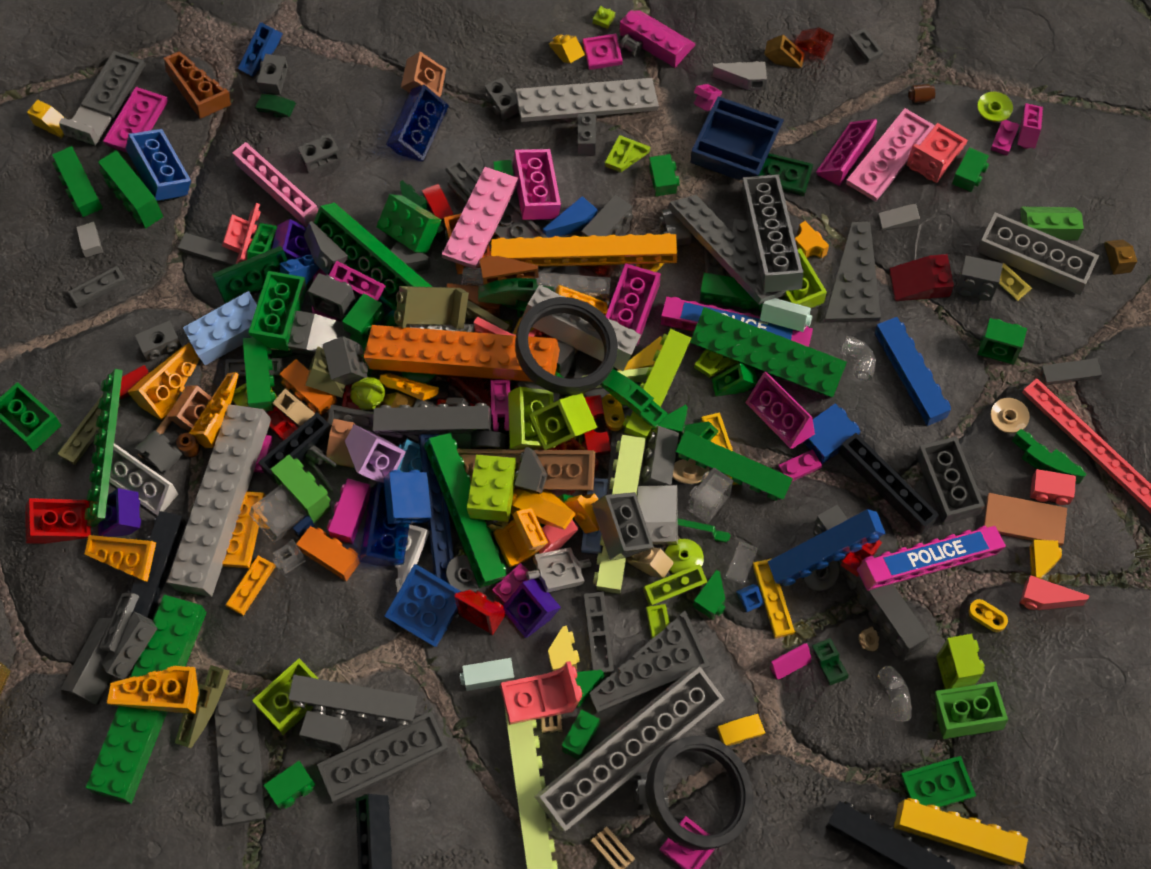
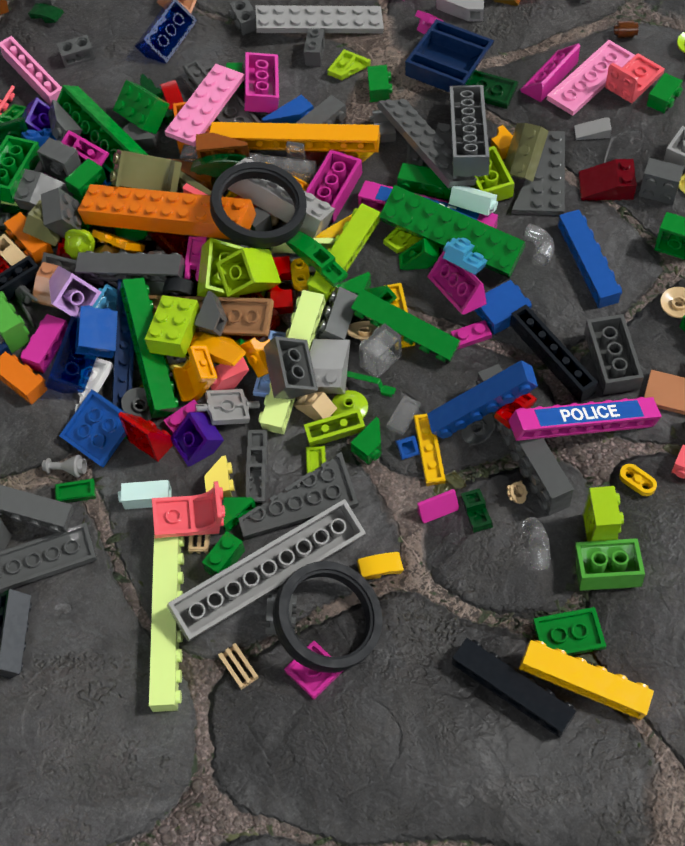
camera: 10 degrees right, 5 degrees down
(407, 649) = (75, 466): none -> light grey piece
(411, 676) = (75, 491): none -> green tile
(588, 267) = (295, 150): none -> clear tile
(783, 384) = (460, 253): none -> dark azure plate
(833, 253) = (525, 150): none -> olive slope

